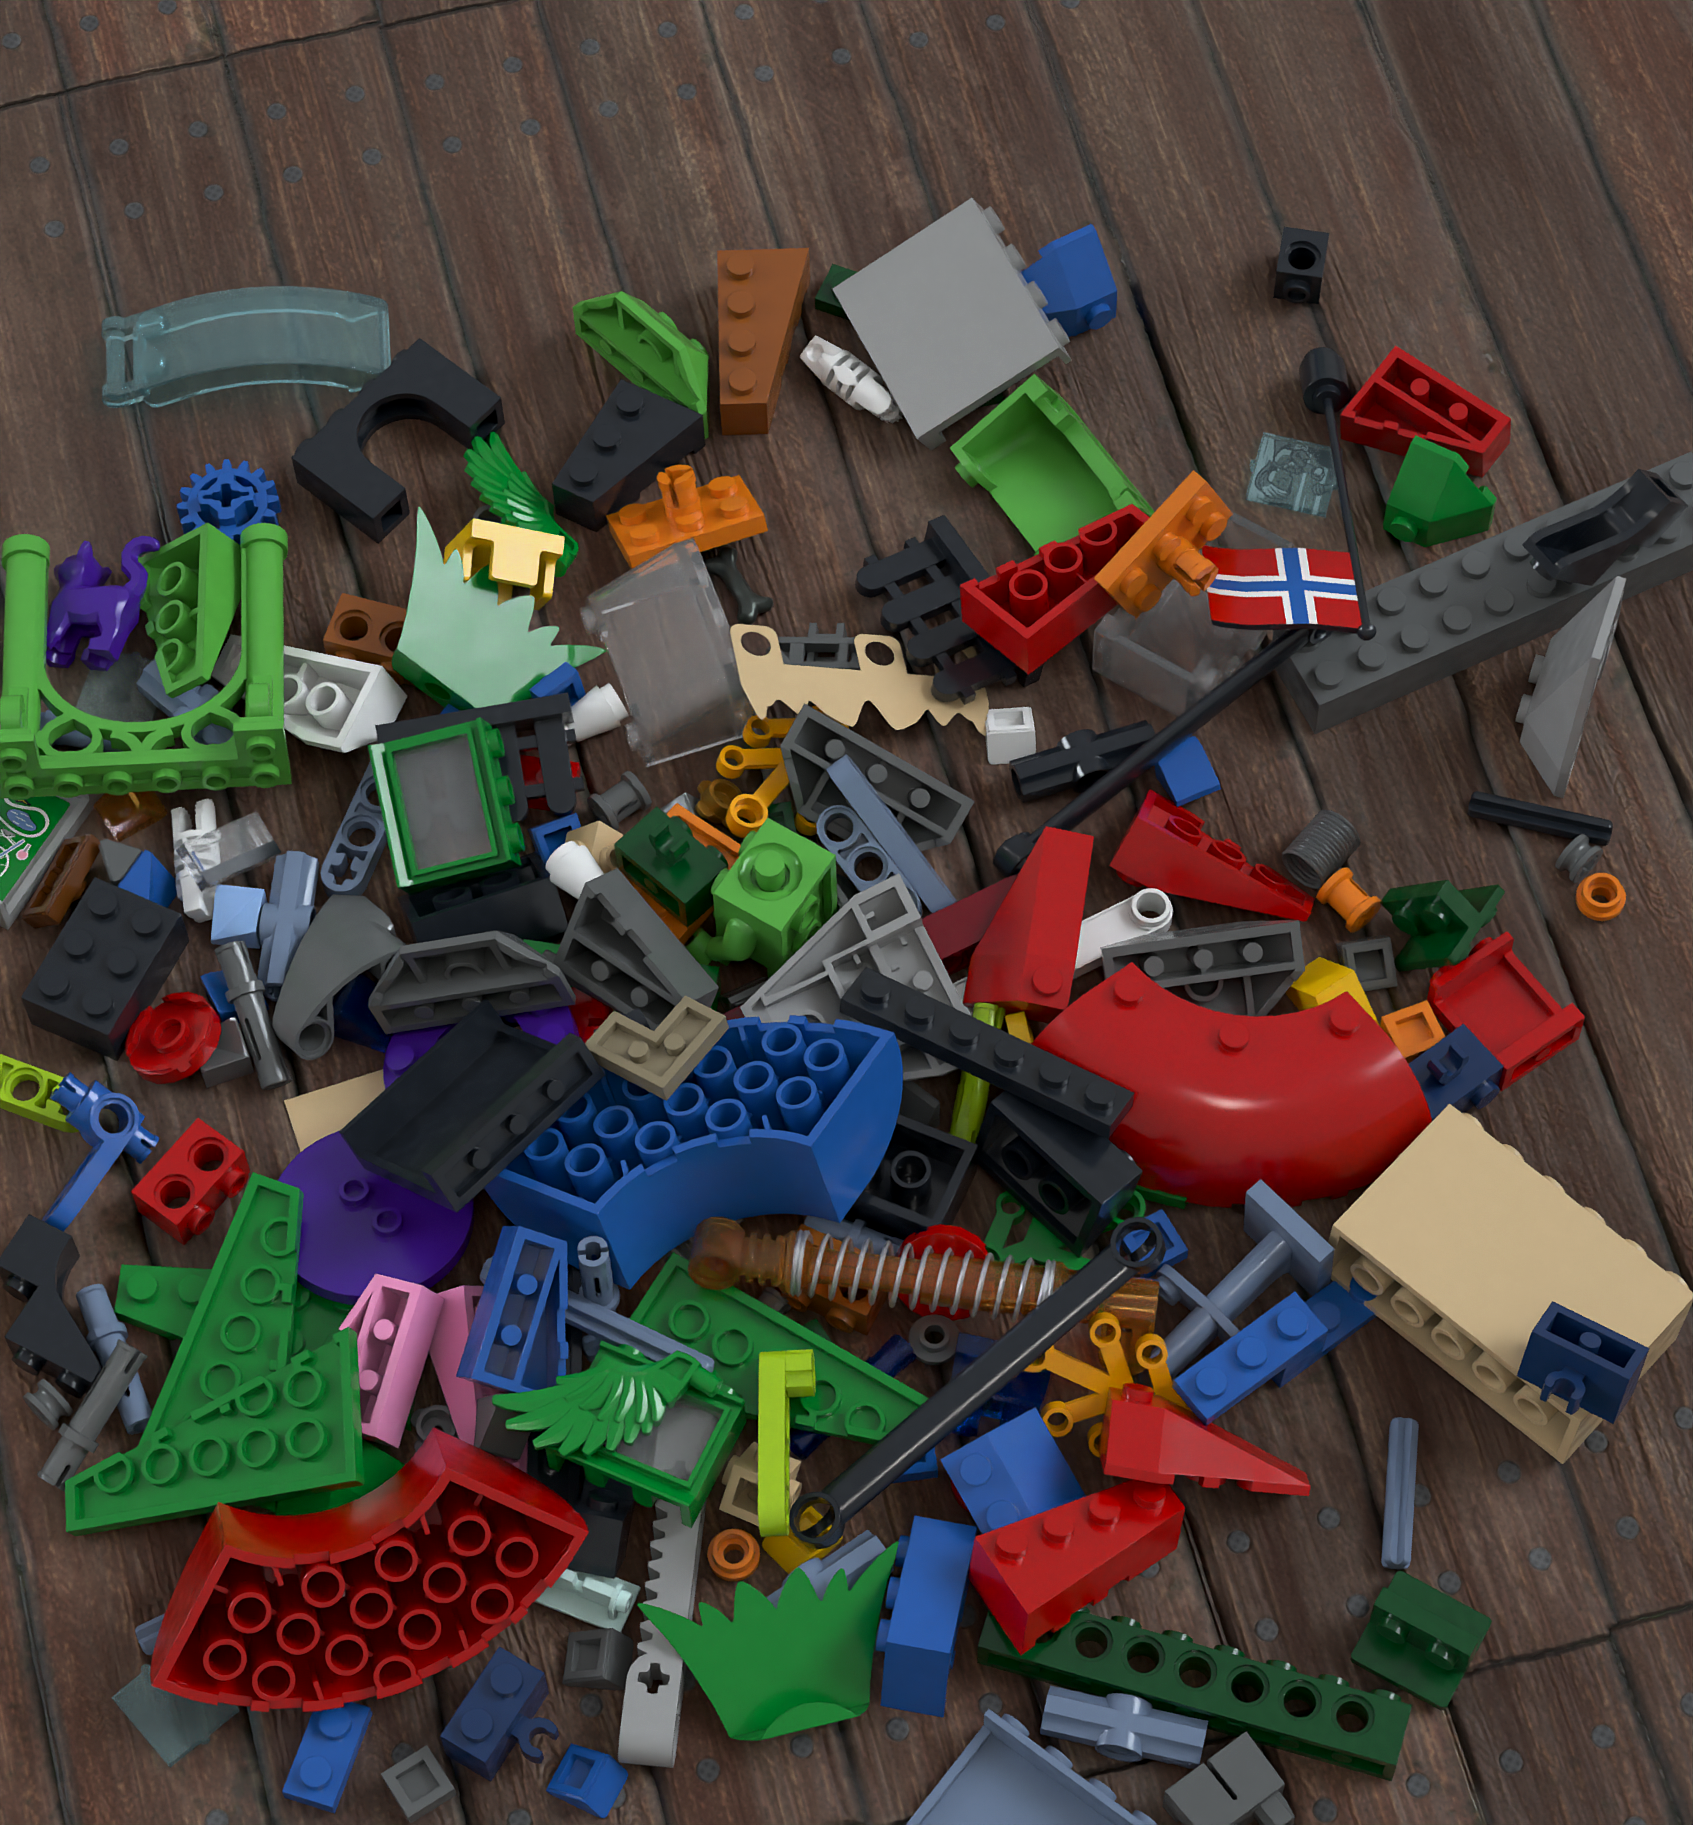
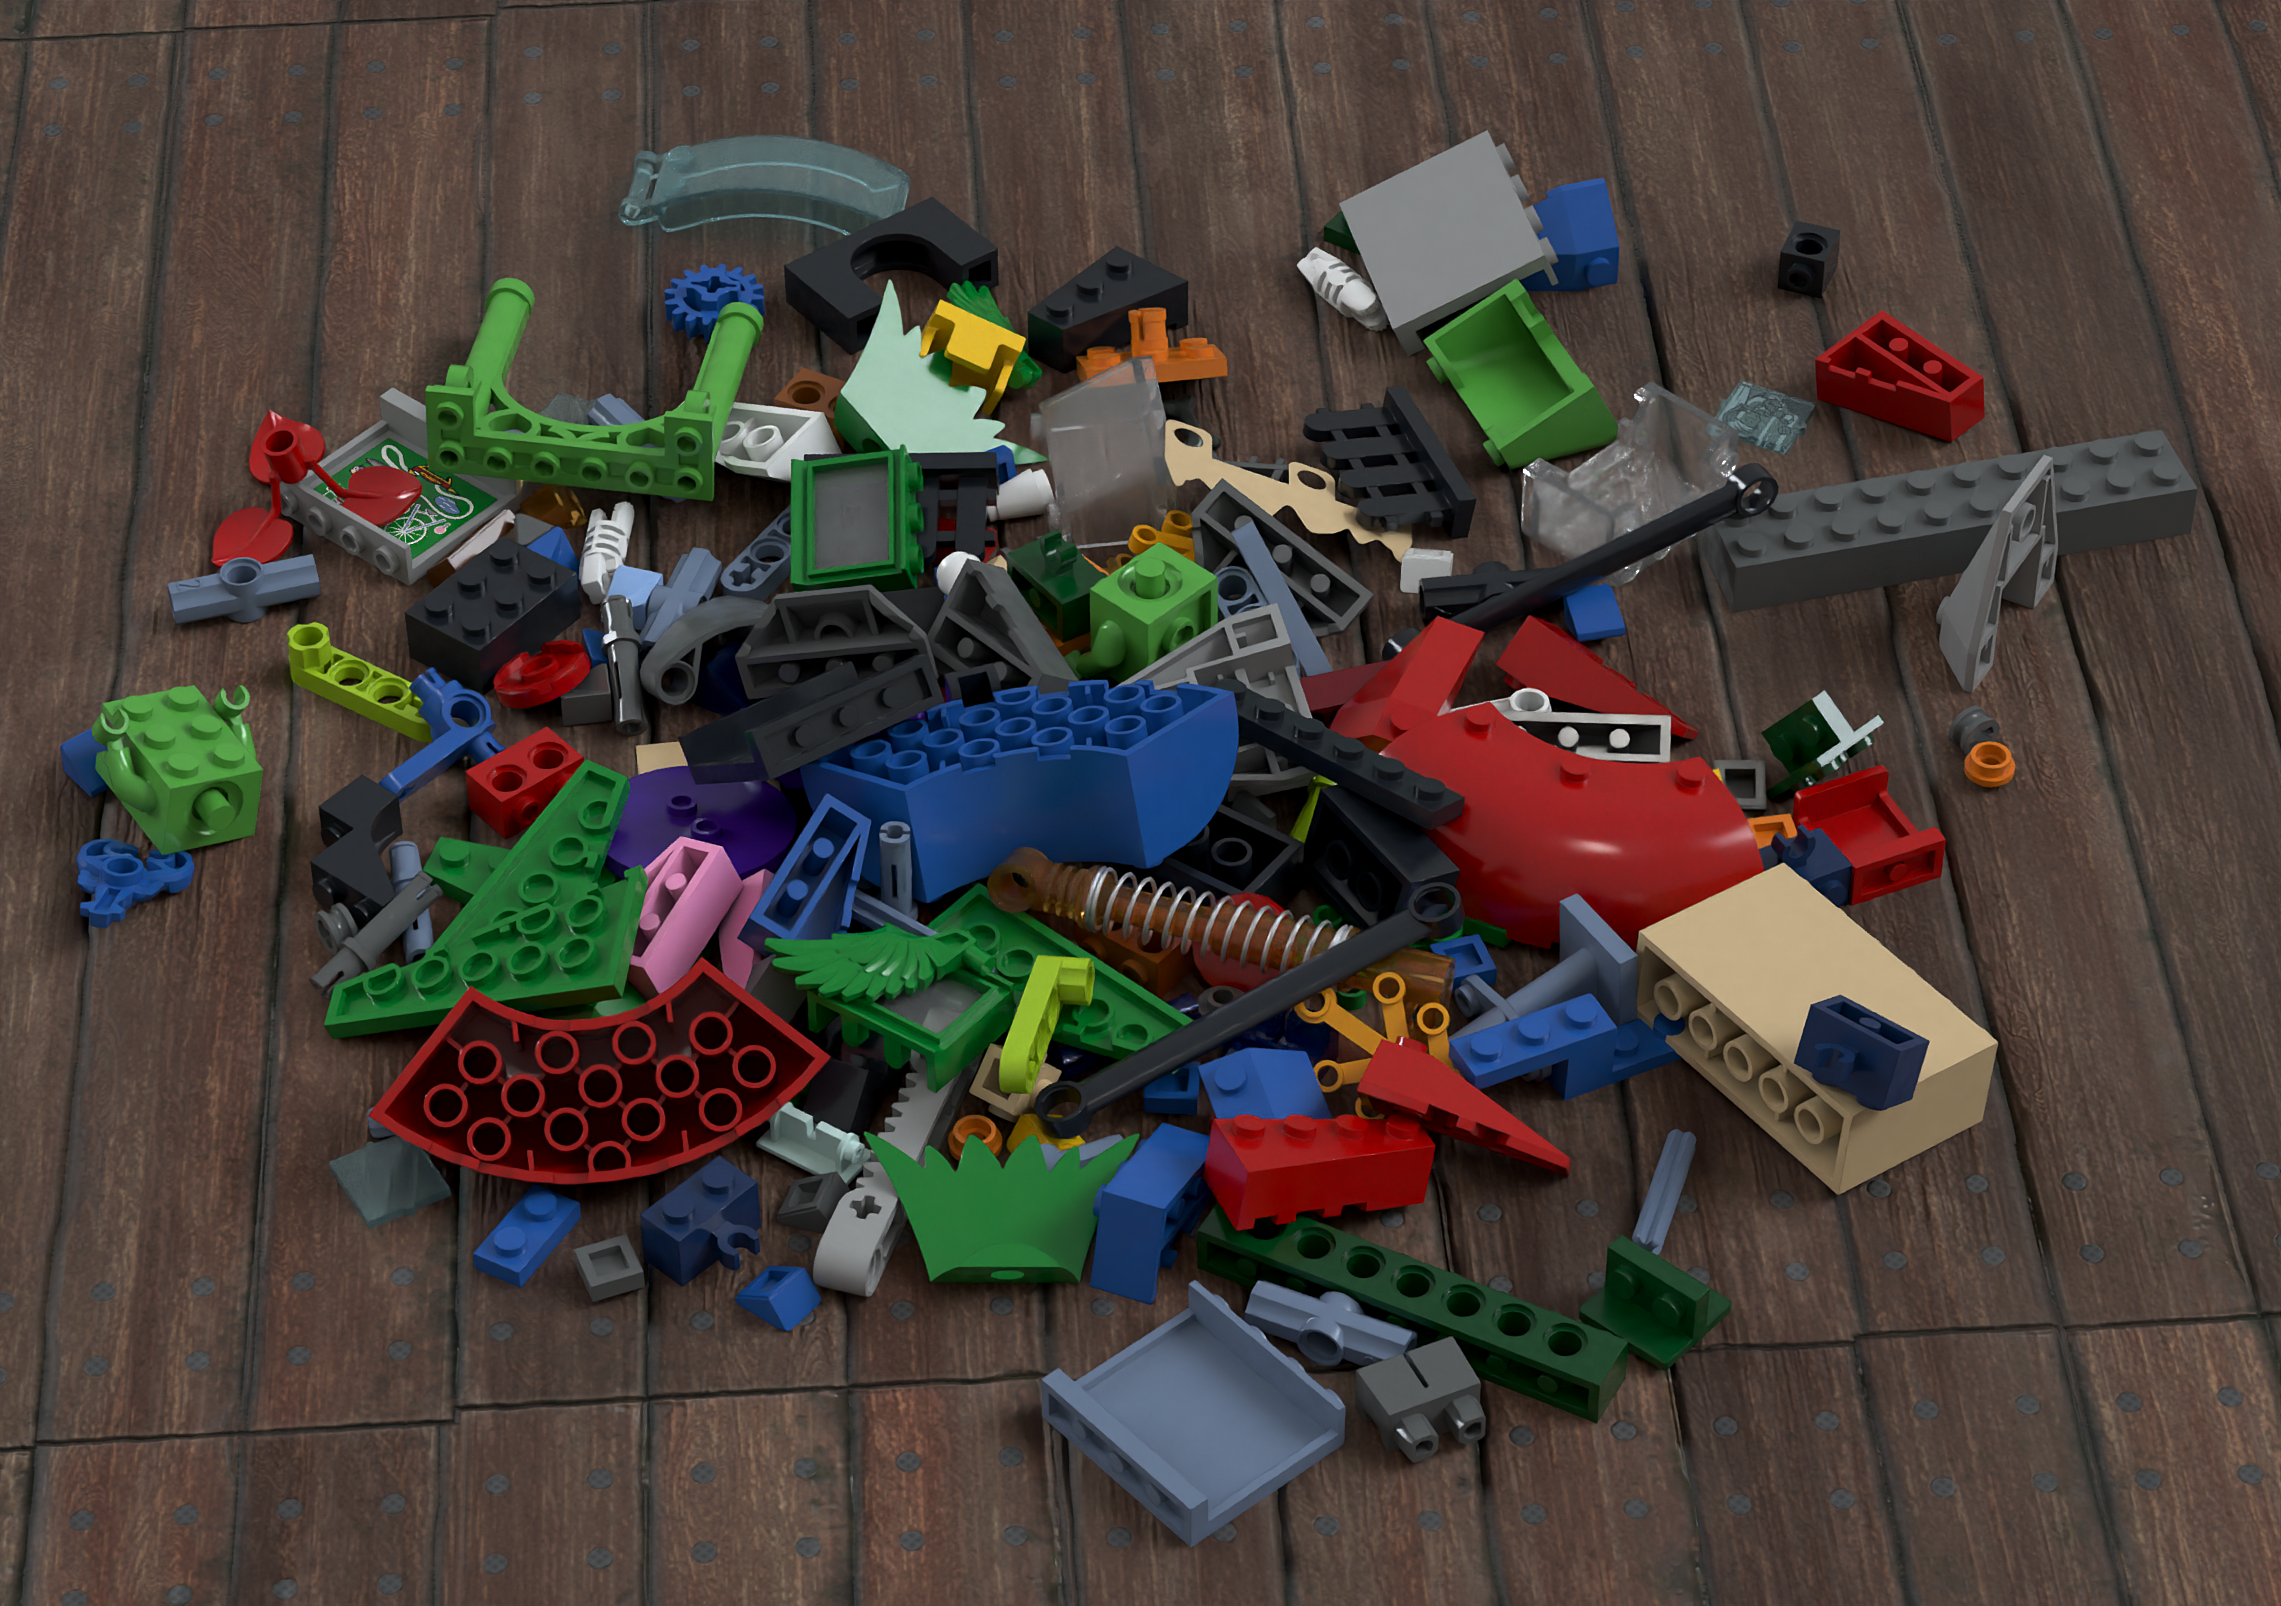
camera: 10 degrees right, 20 degrees down
(95, 610) = (564, 354): dark purple animal -> none
(191, 604) = (657, 352): bright green wedge -> none
(228, 851) = (635, 542): clear tile -> none
(647, 349) = (1141, 221): bright green wedge -> none
(659, 1057) = (1006, 689): dark tan plate -> none
(757, 321) = (1259, 235): dark orange wedge -> none
(1051, 597) = (1491, 444): red wedge -> none
(1168, 548) = (1608, 406): orange plate -> none
(1298, 584) = (1742, 452): flag -> none
(1321, 849) = (1713, 687): dark grey piece -> none
(1349, 900) = (1731, 730): orange bush -> none
(1436, 498) = (1895, 432): green slope -> none
(1539, 818) = (1937, 696): black axle -> none
(1591, 541) = (2085, 447): black arch -> none

